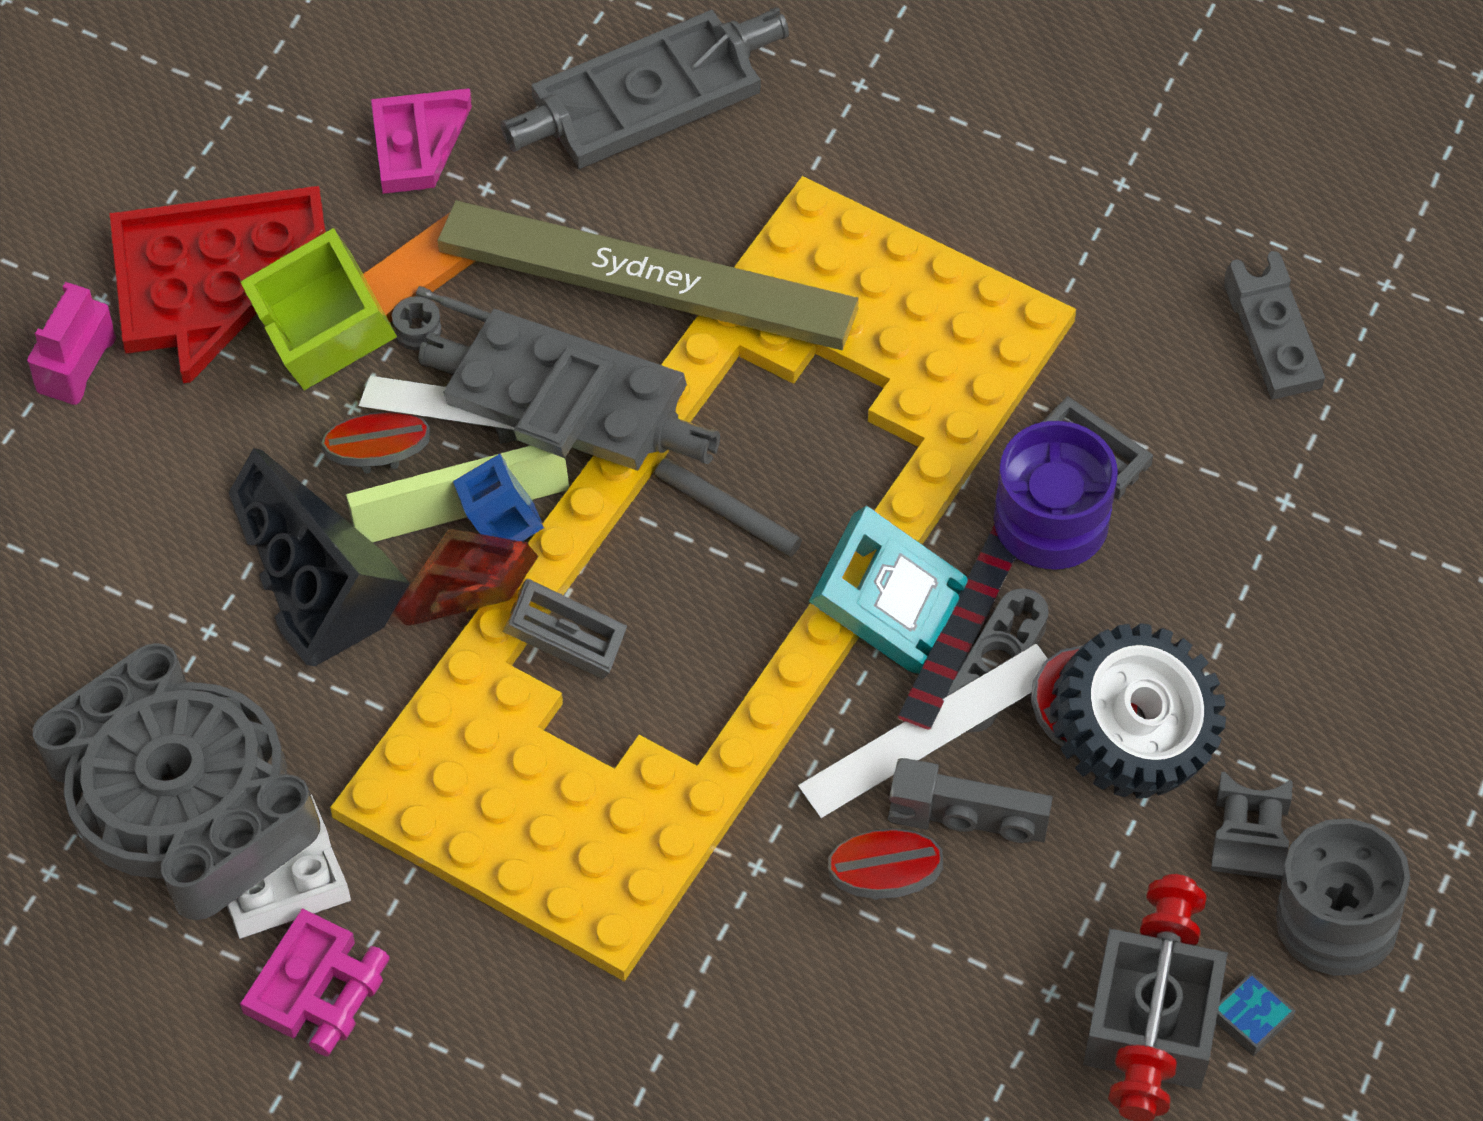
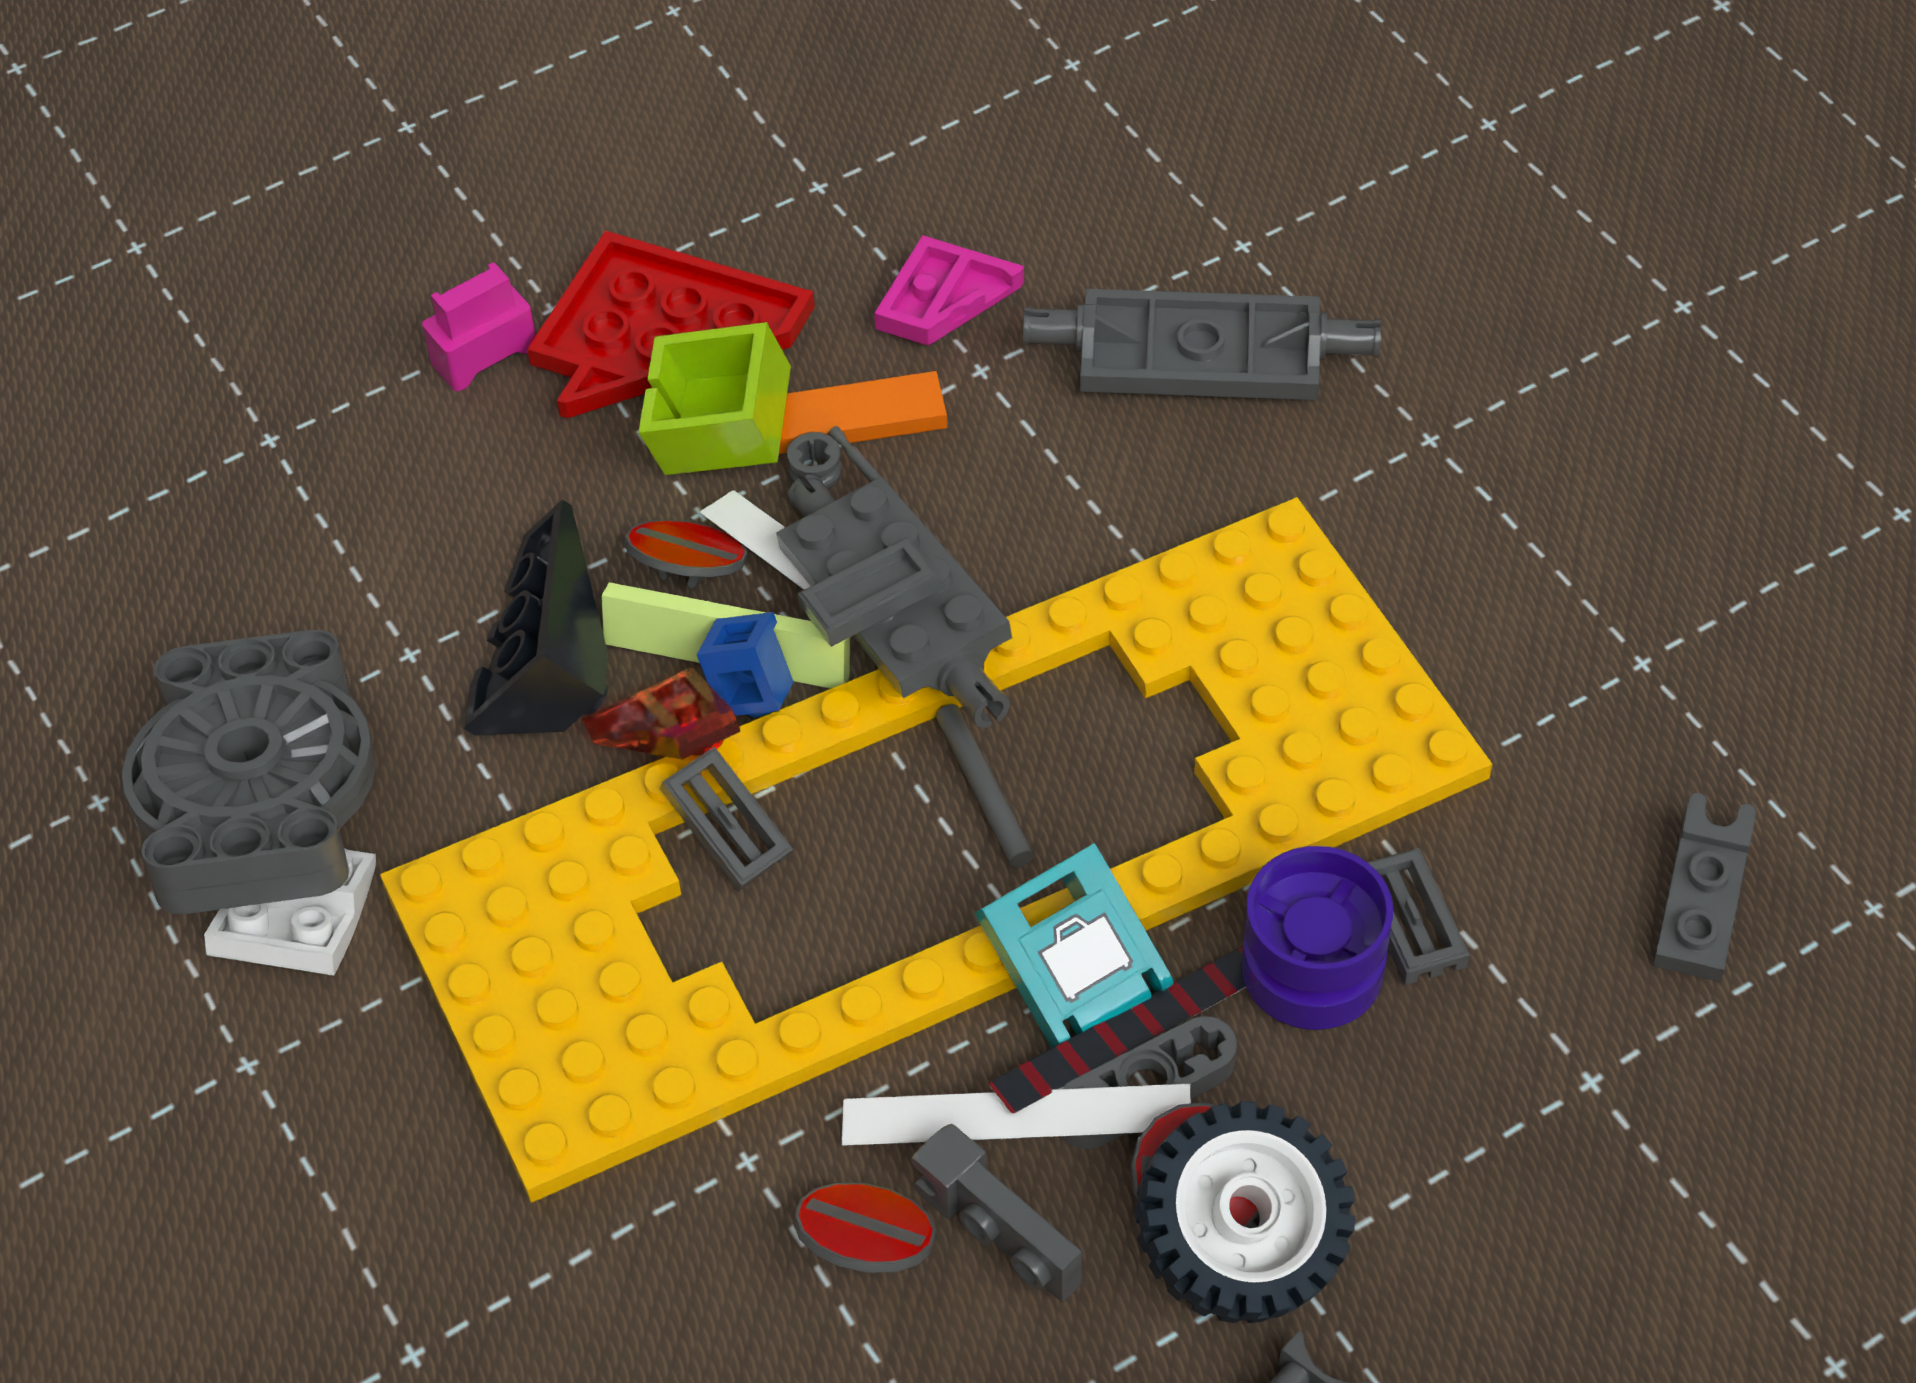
camera: 35 degrees right, 5 degrees down
(299, 973) = (227, 1018): dark pink plate -> none
(649, 275) = (1067, 522): olive tile -> none

